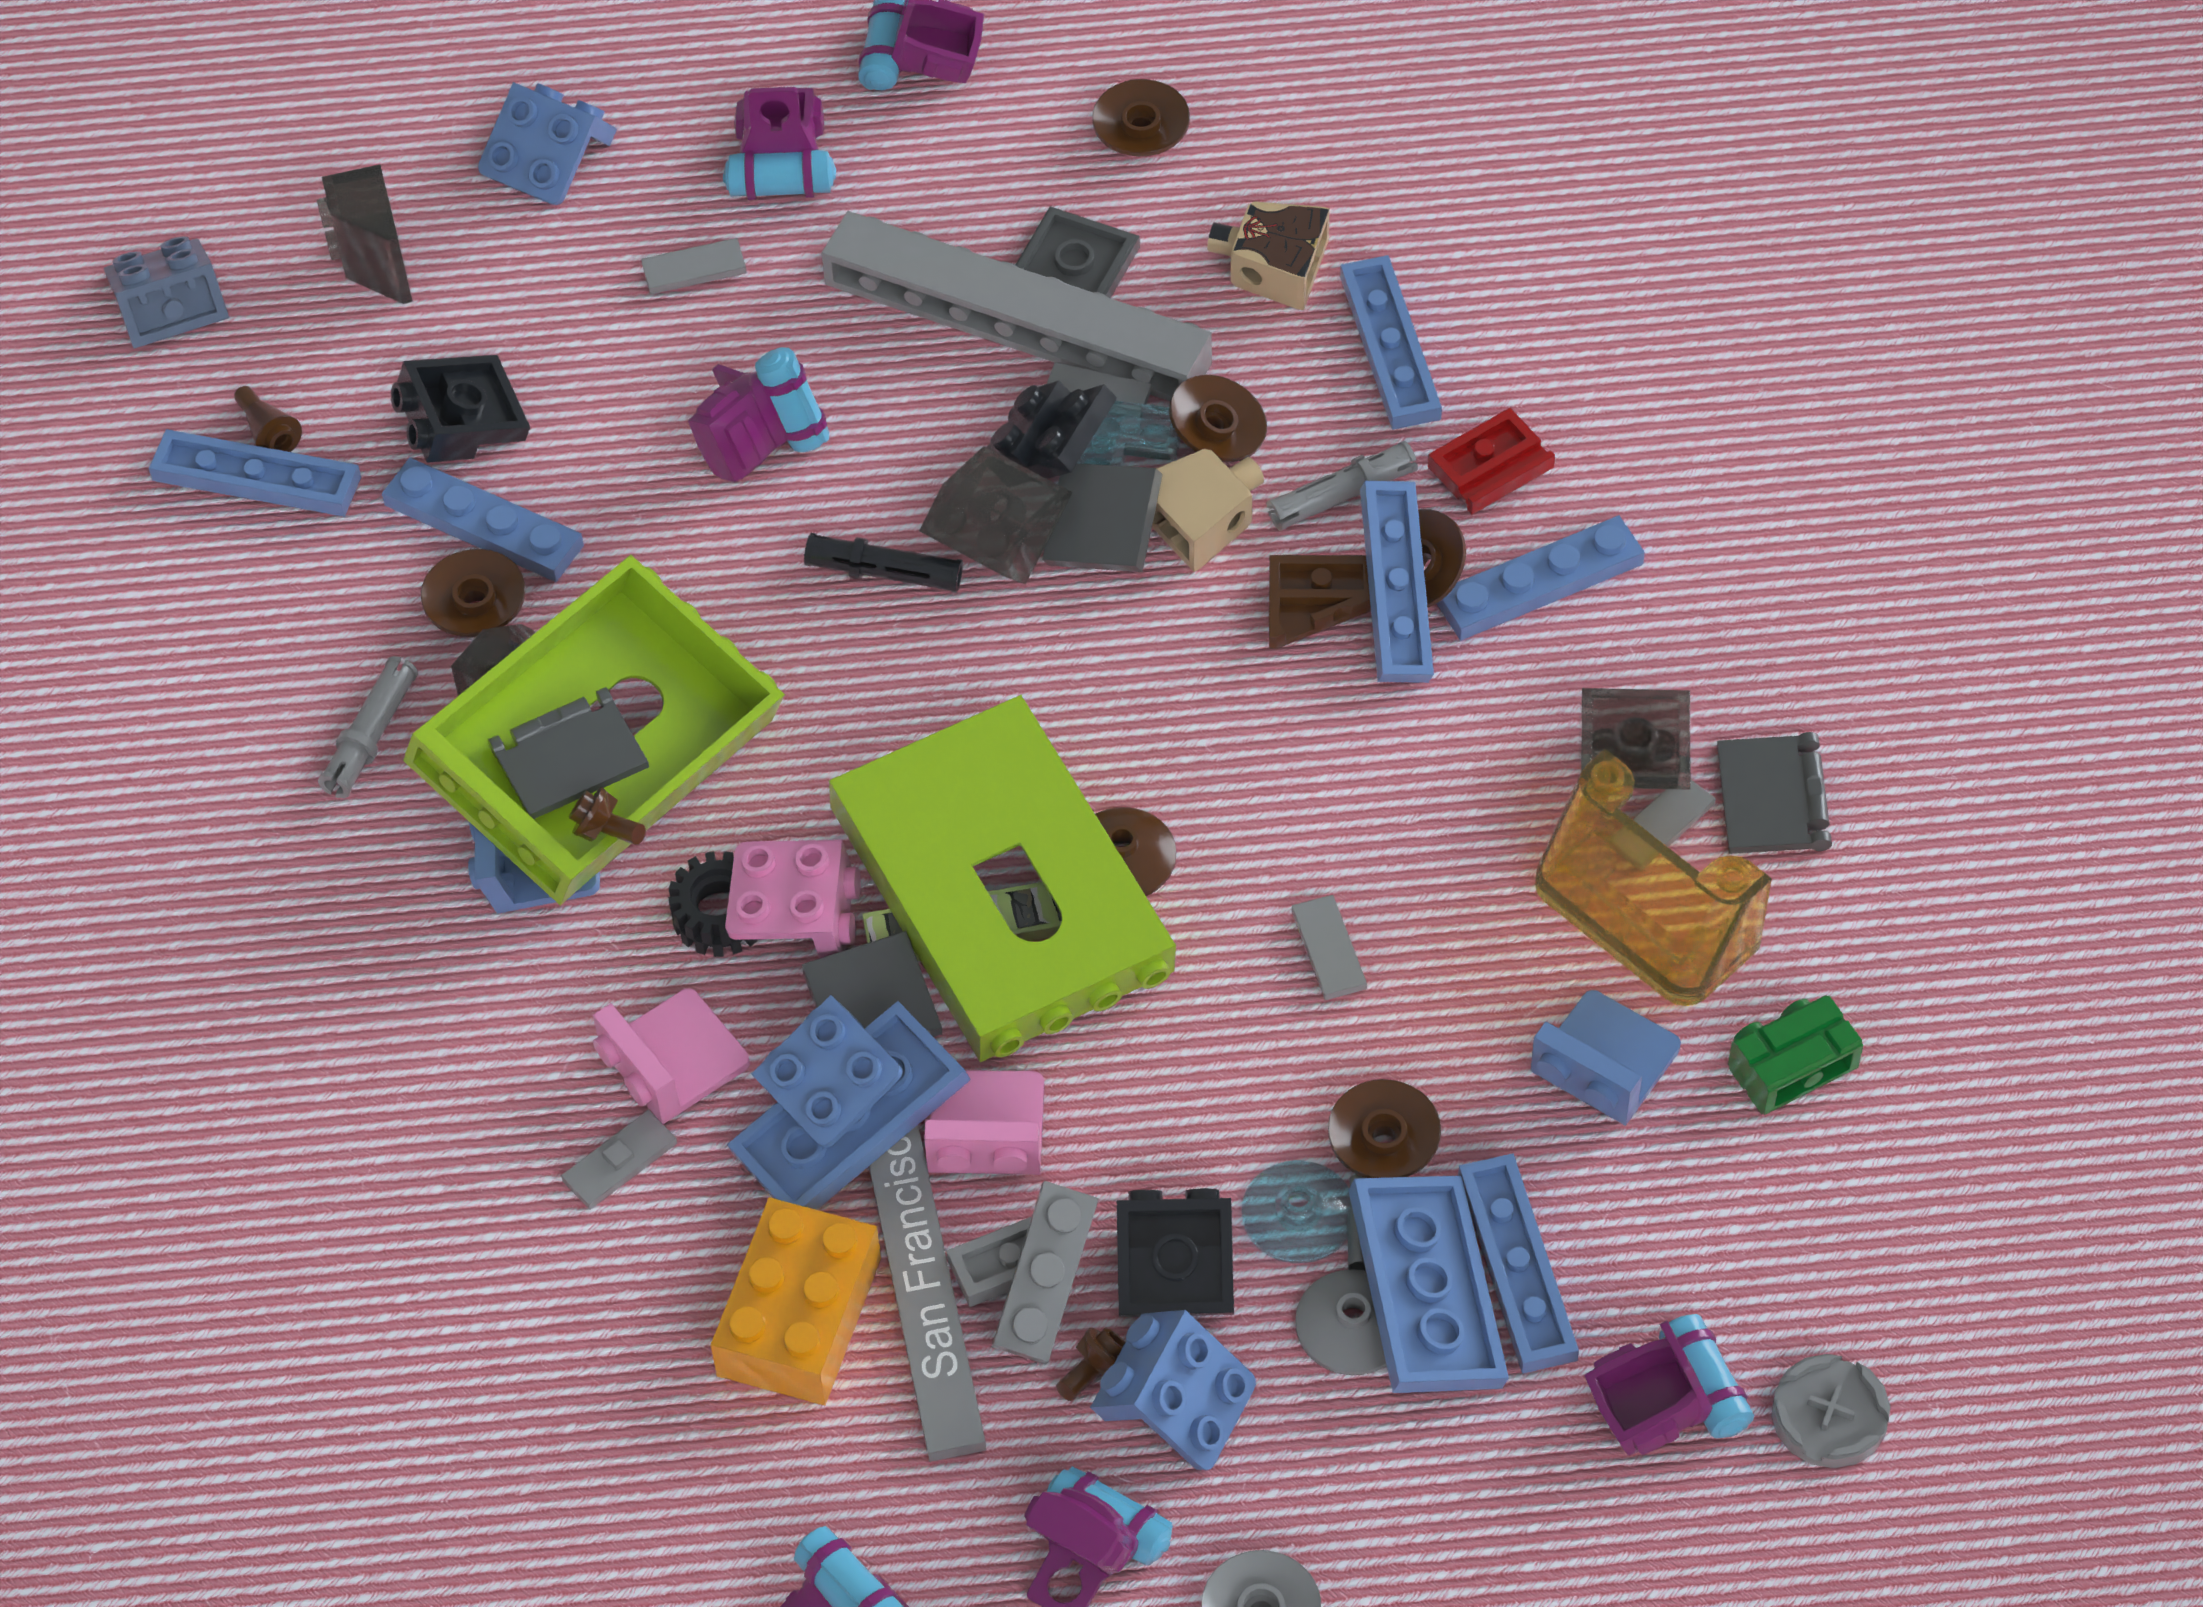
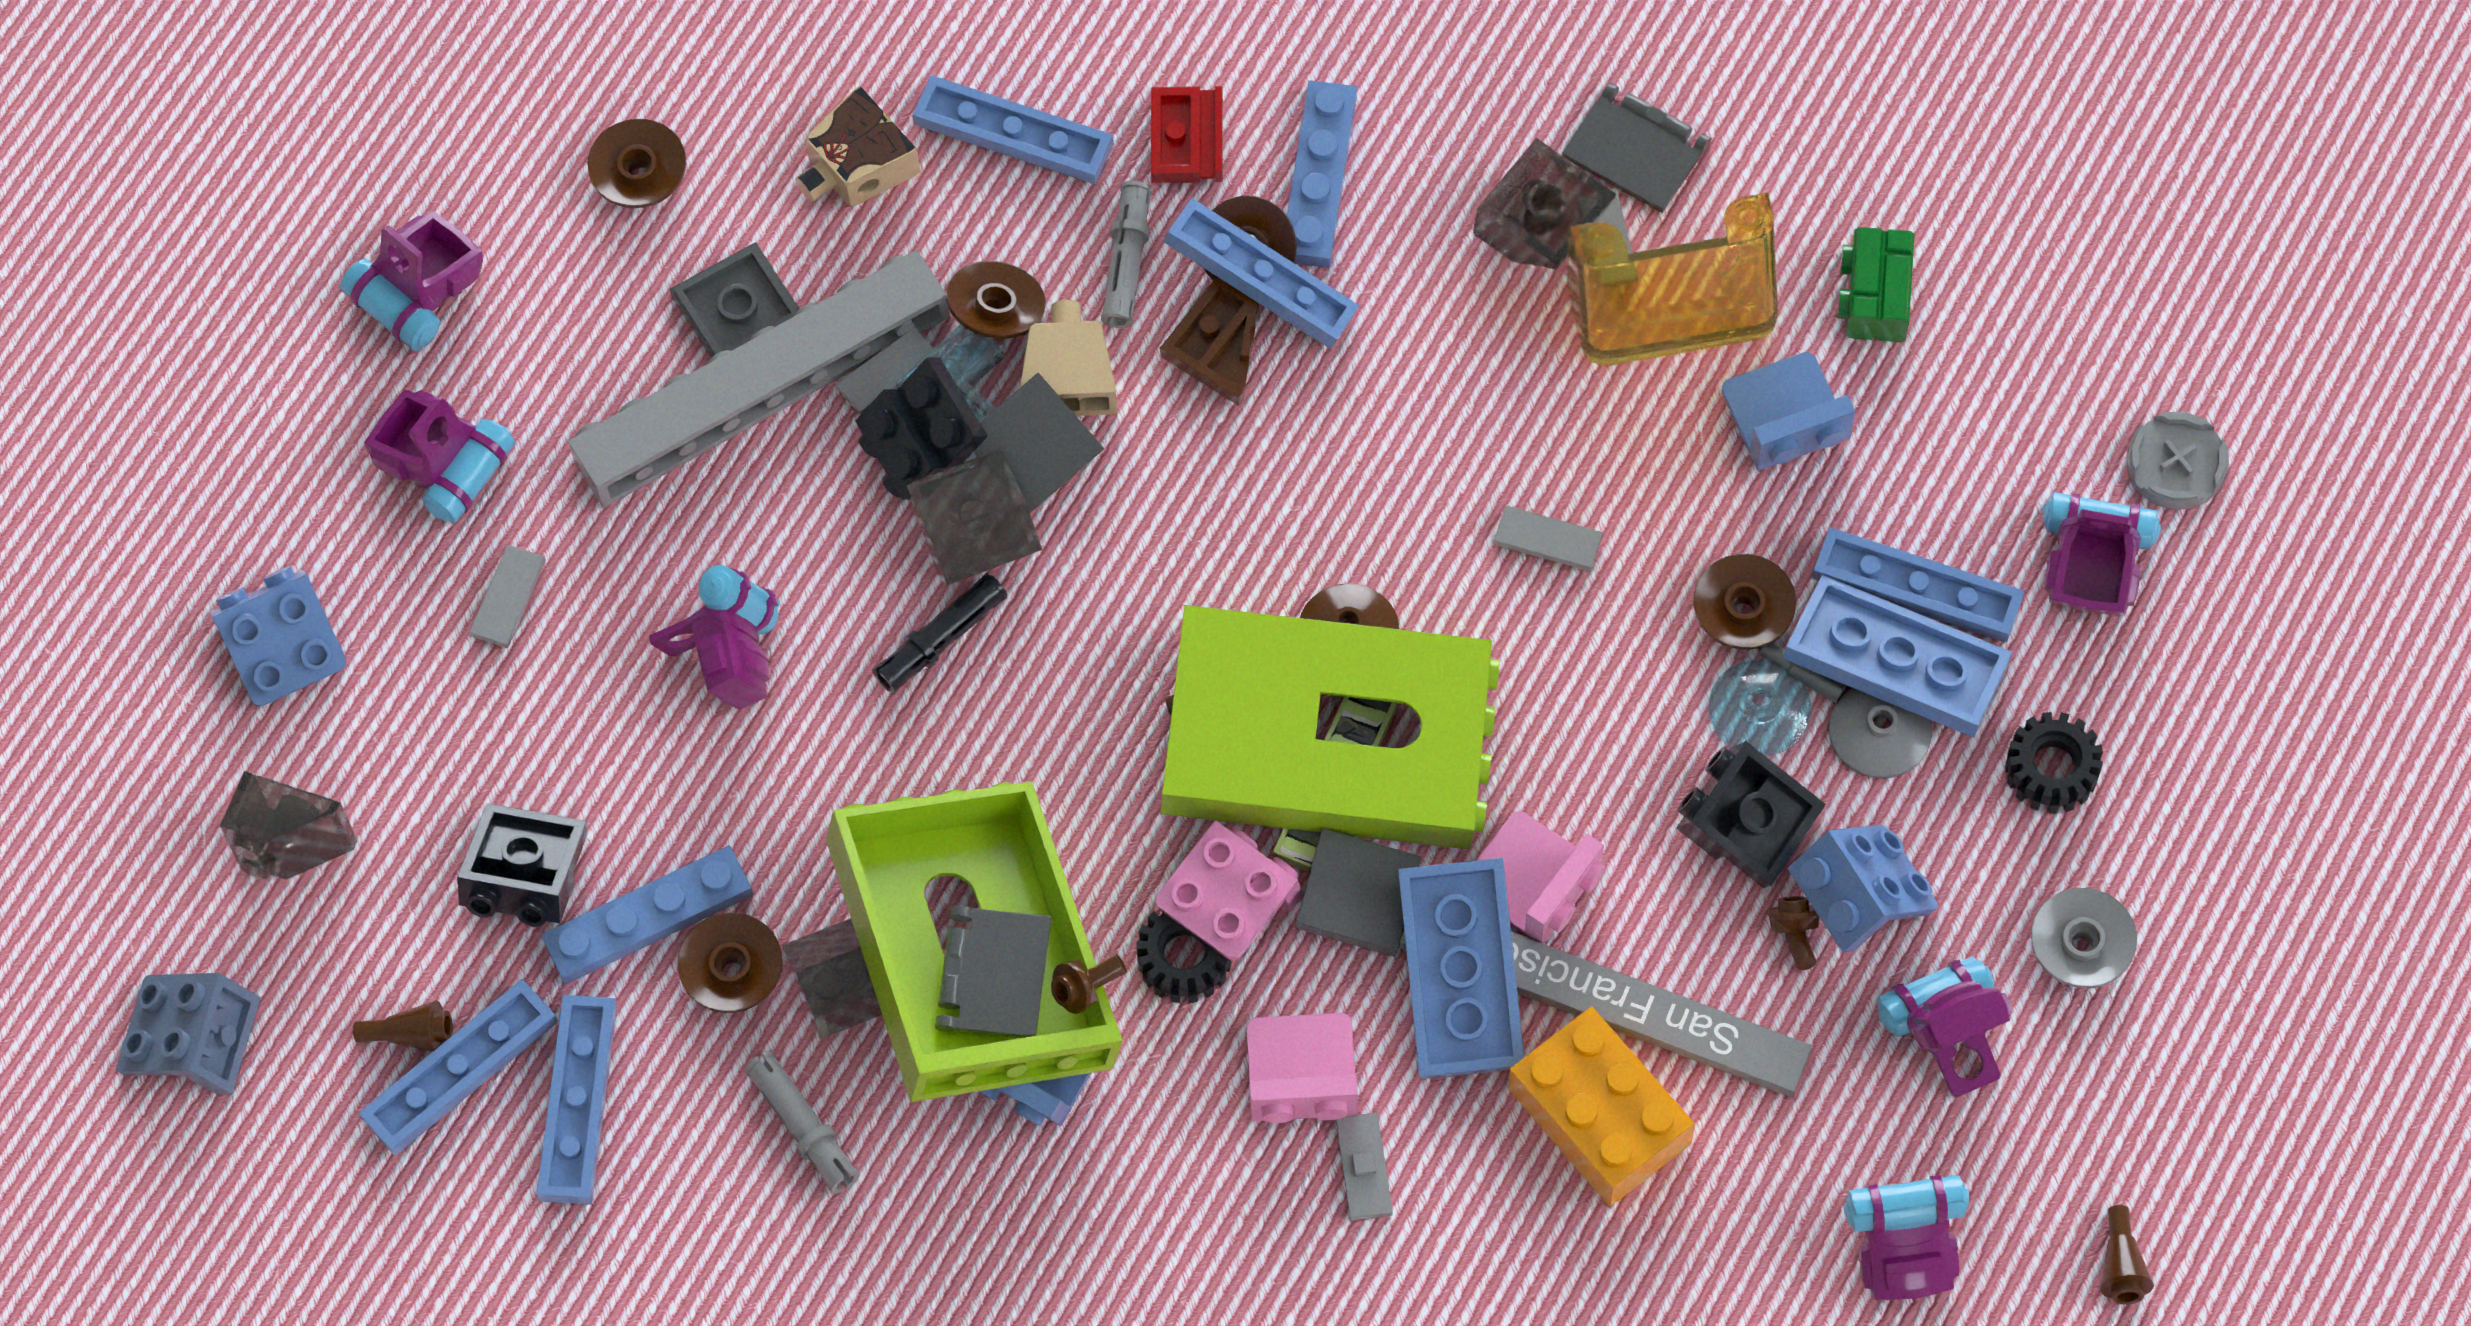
camera: 55 degrees left, 10 degrees up
(281, 565) = (577, 1100): none -> medium blue plate
(828, 1072) = (1425, 958): medium blue bracket -> none
(988, 1262) = (1665, 932): light grey plate -> none
(1045, 1272) = (1705, 913): light grey plate -> none
(1432, 1449) = (2057, 734): none -> black tyre

